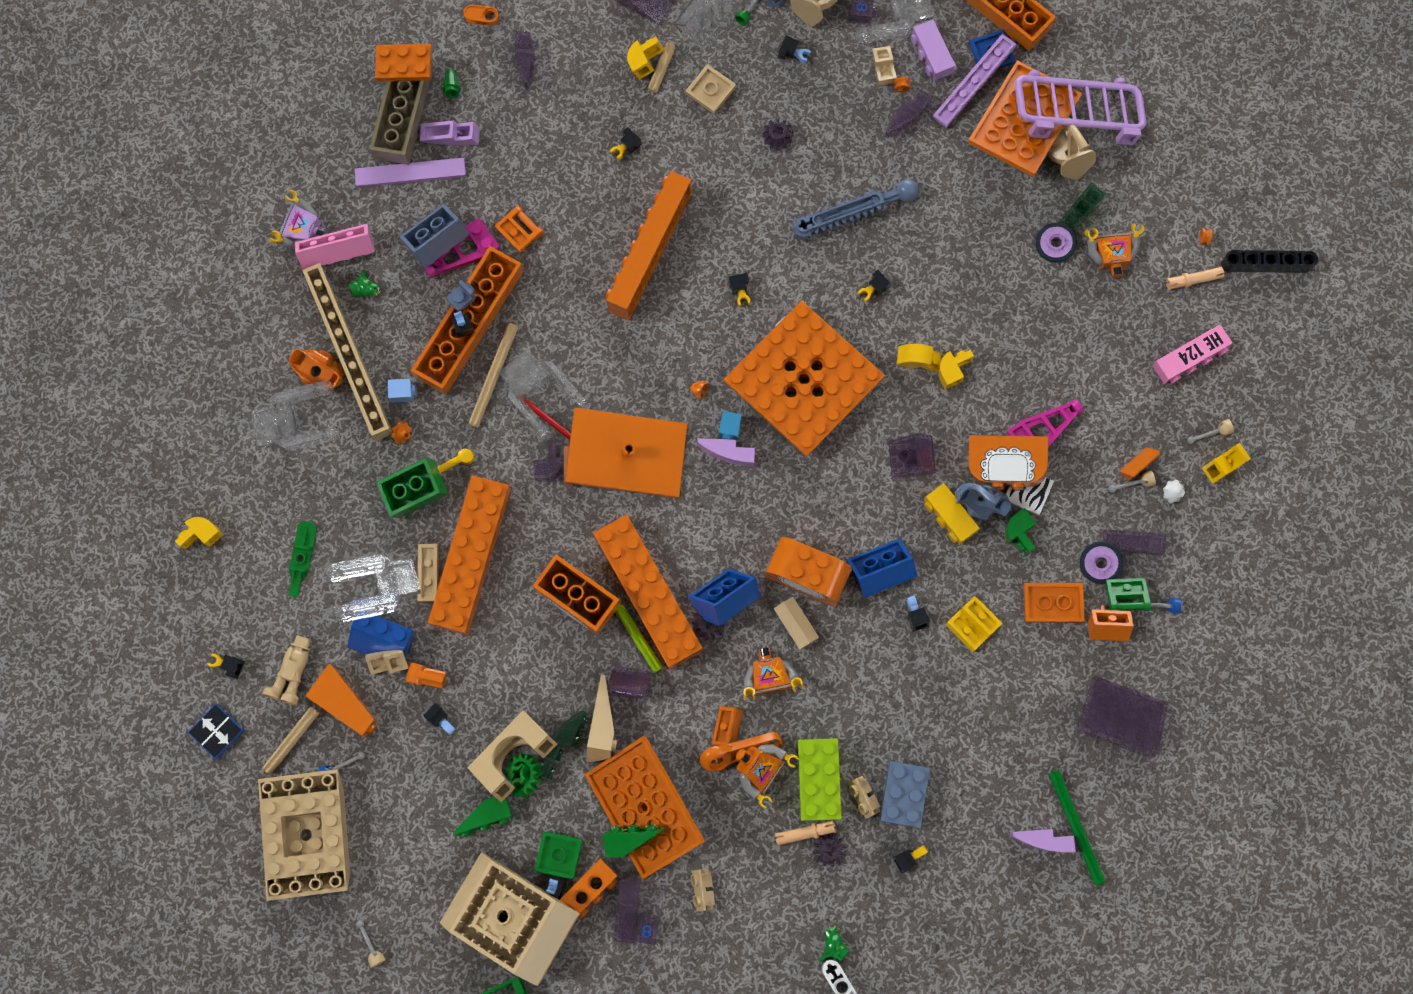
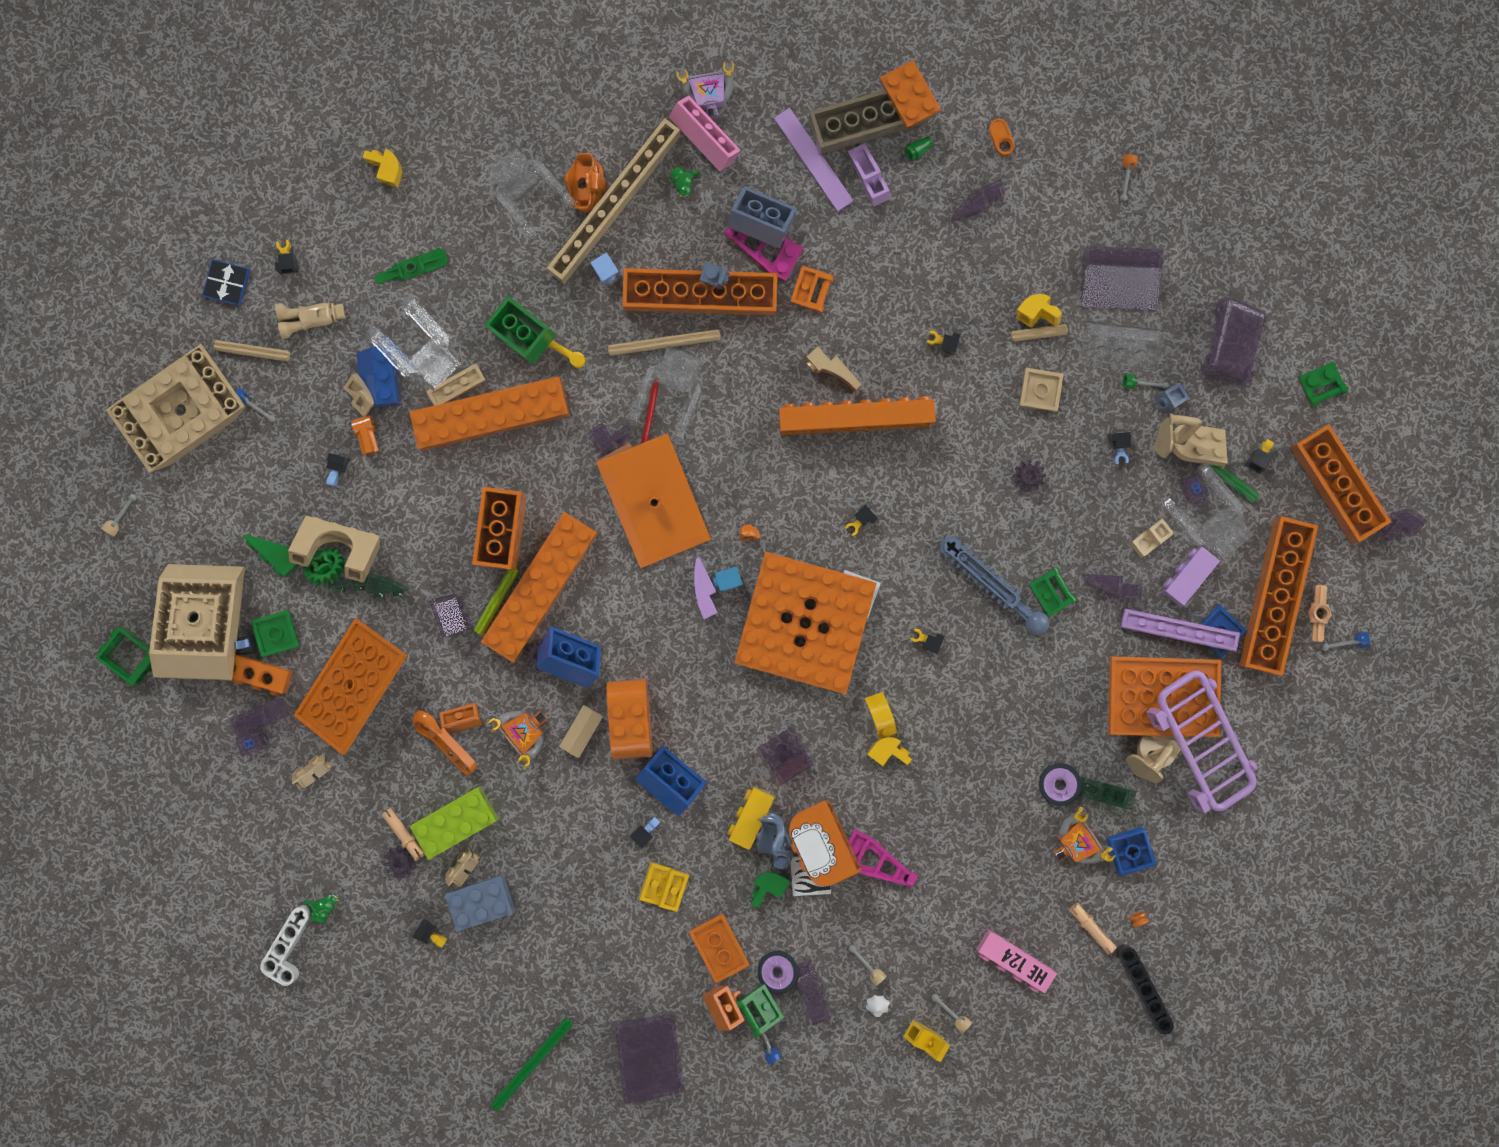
camera: 55 degrees right, 10 degrees up
(341, 701) = (305, 376): orange slope -> none
(401, 432) = (567, 291): orange plant -> none
(462, 324) = (688, 291): black piece -> none
(598, 242) = (820, 362): none -> tan slope
(601, 735) = (392, 615): tan wedge -> none
(621, 842) = (313, 683): green slope -> none
(760, 767) = (437, 767): torso -> none
(887, 171) = (1048, 596): none -> green plate
(902, 84) = (1140, 564): orange bush -> none
(1045, 840) = (504, 1042): lavender slope -> none
(1139, 463) = (888, 962): orange slope -> none
(1153, 207) = (1142, 856): none -> blue brick

